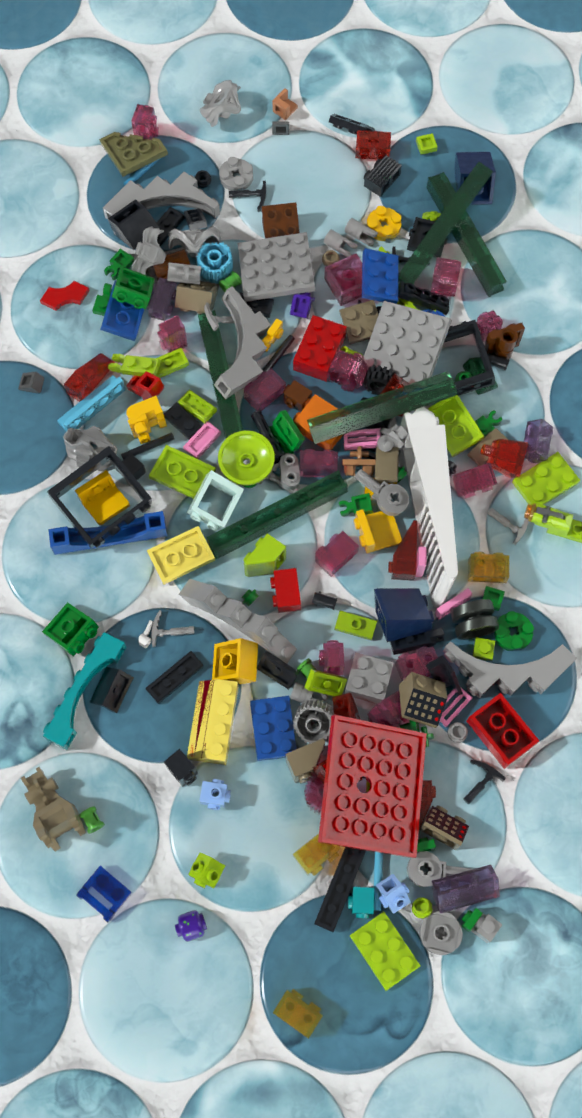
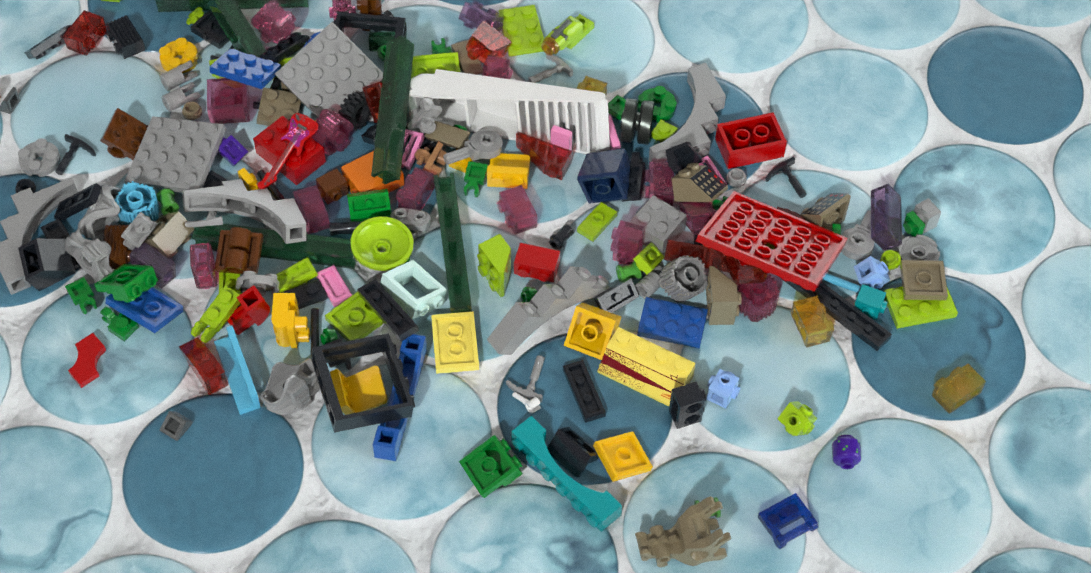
camera: 70 degrees left, 15 degrees down
(118, 731) = (622, 456): none -> yellow plate
(147, 457) = (328, 335): none -> green plate
(170, 382) = (262, 282): none -> light grey plate
(179, 489) = (388, 310): none -> black plate
(193, 354) = (238, 251): none -> reddish brown plate
(327, 345) = (300, 130): none -> red piece
(402, 946) = (923, 280): none -> dark tan plate

